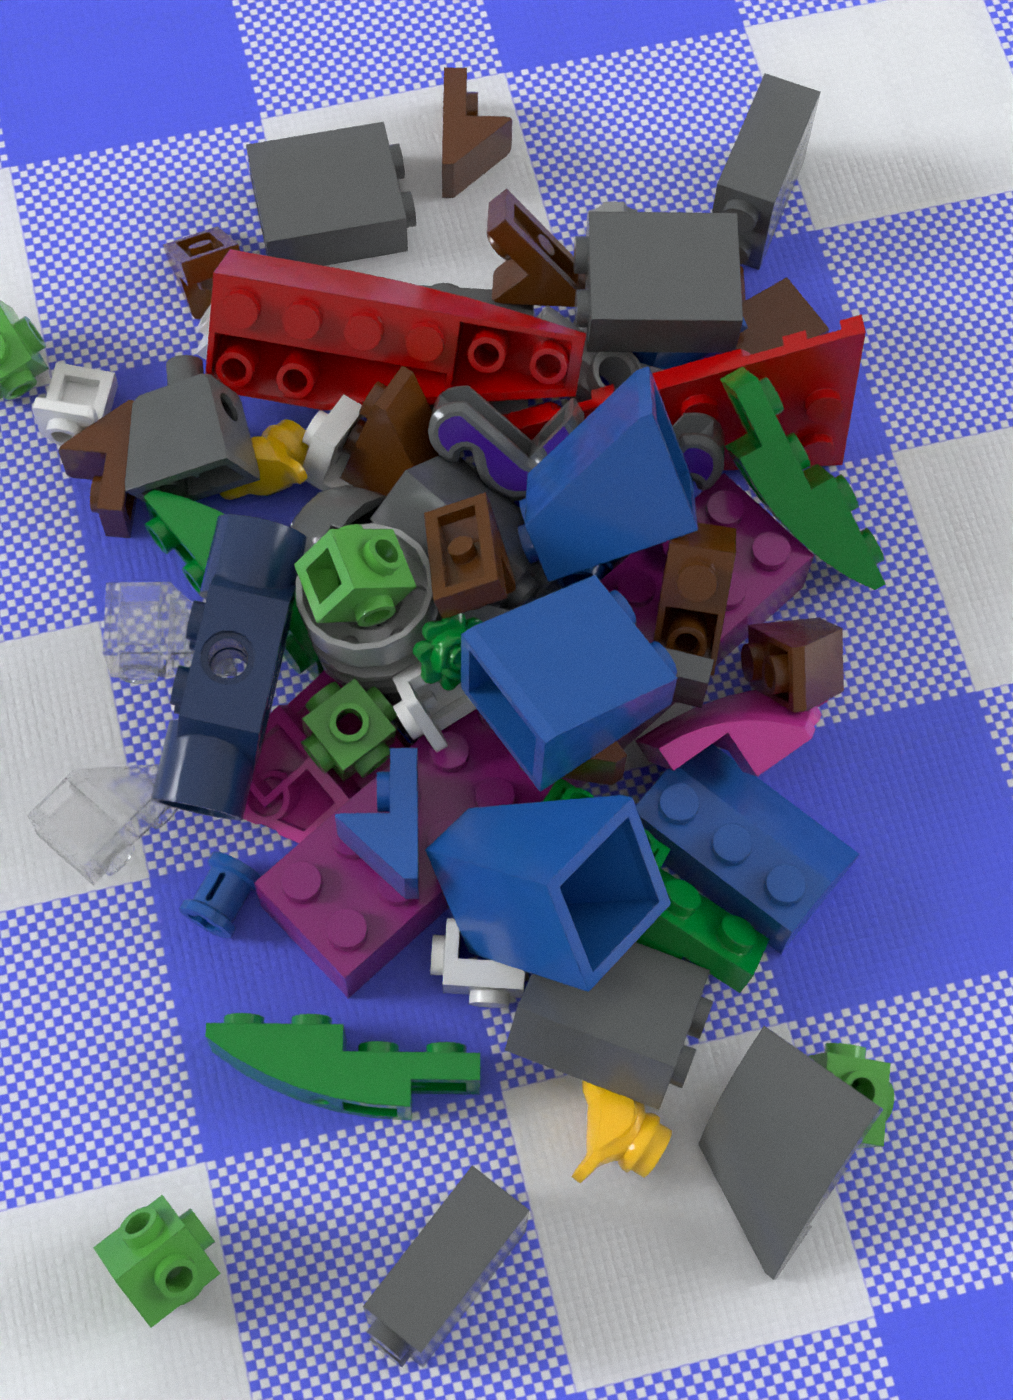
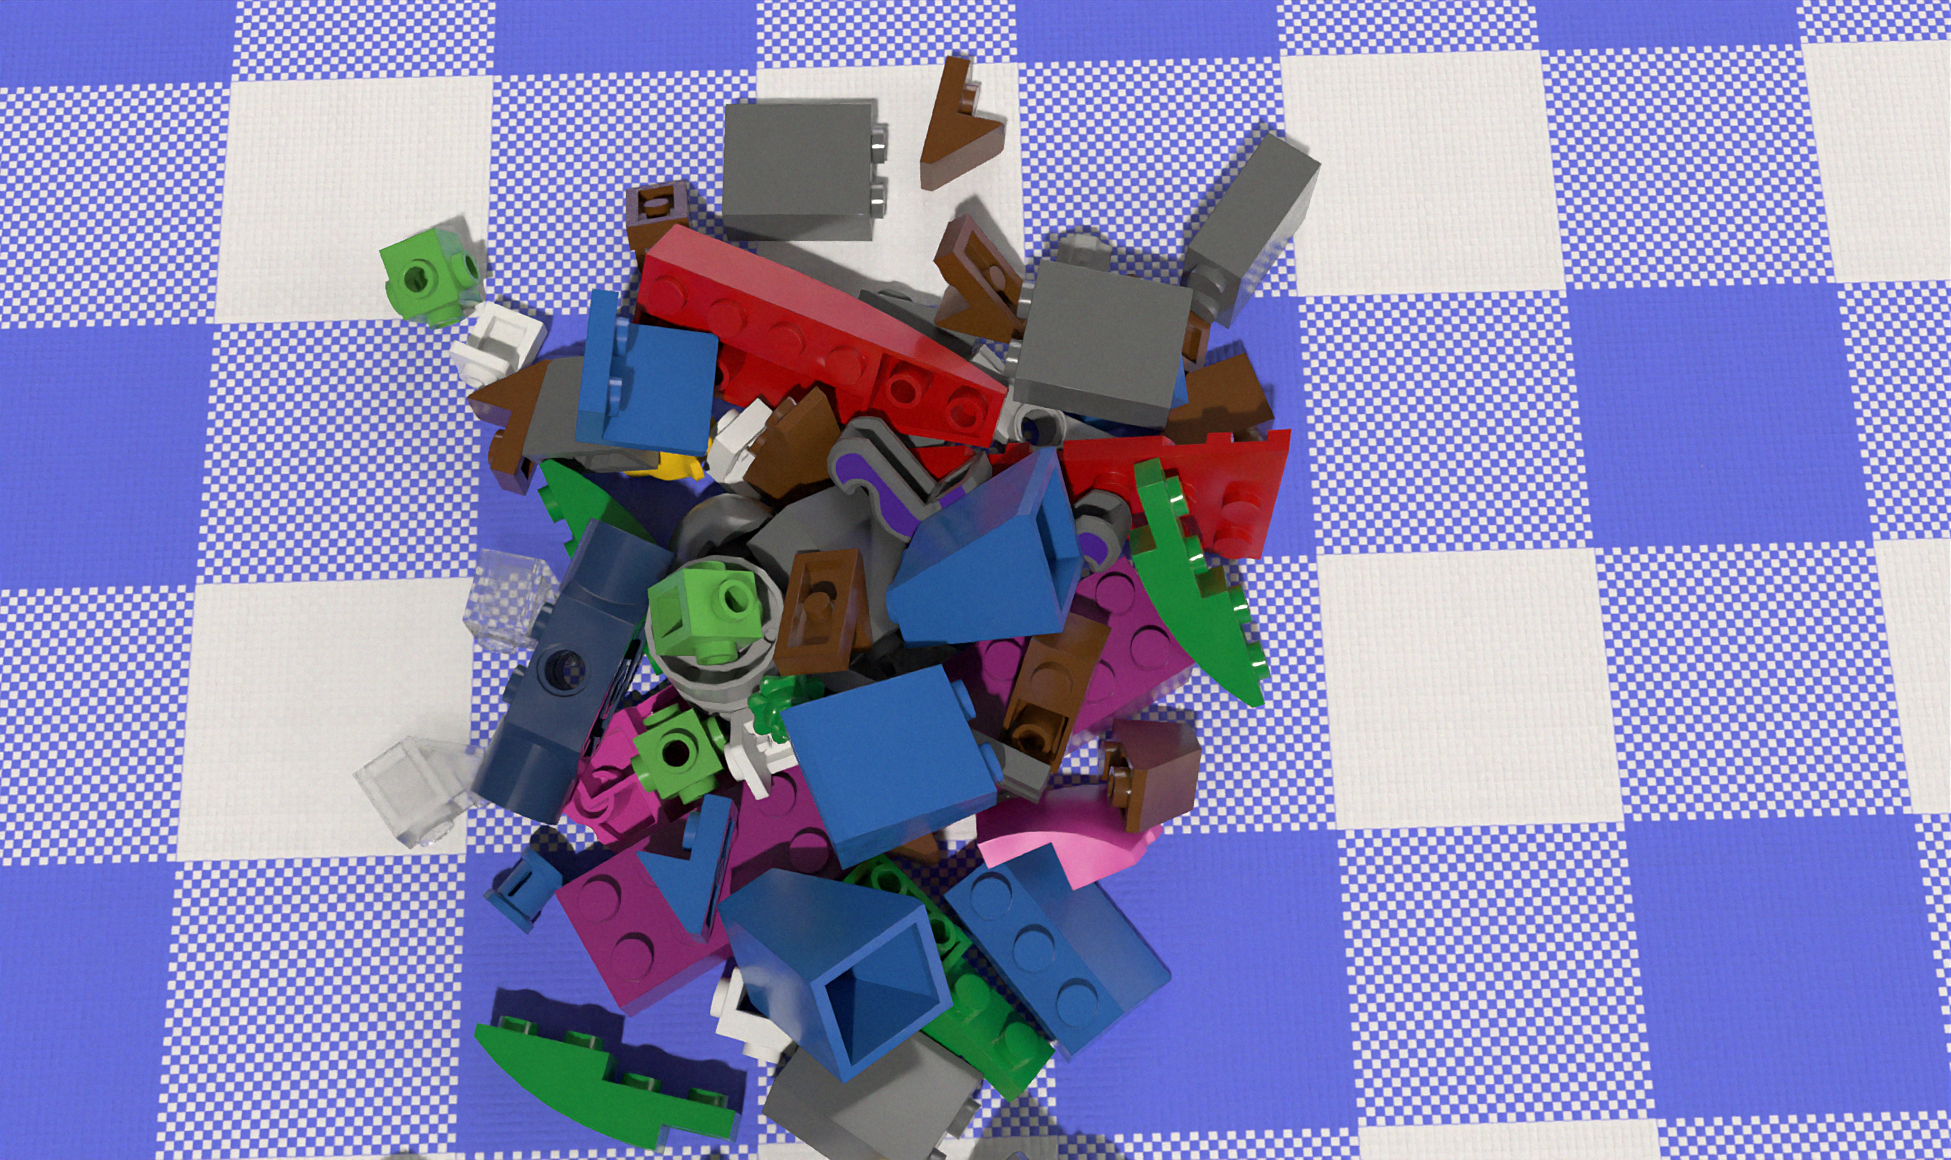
camera: 15 degrees right, 5 degrees up
(236, 391) = (644, 383): none -> blue bracket

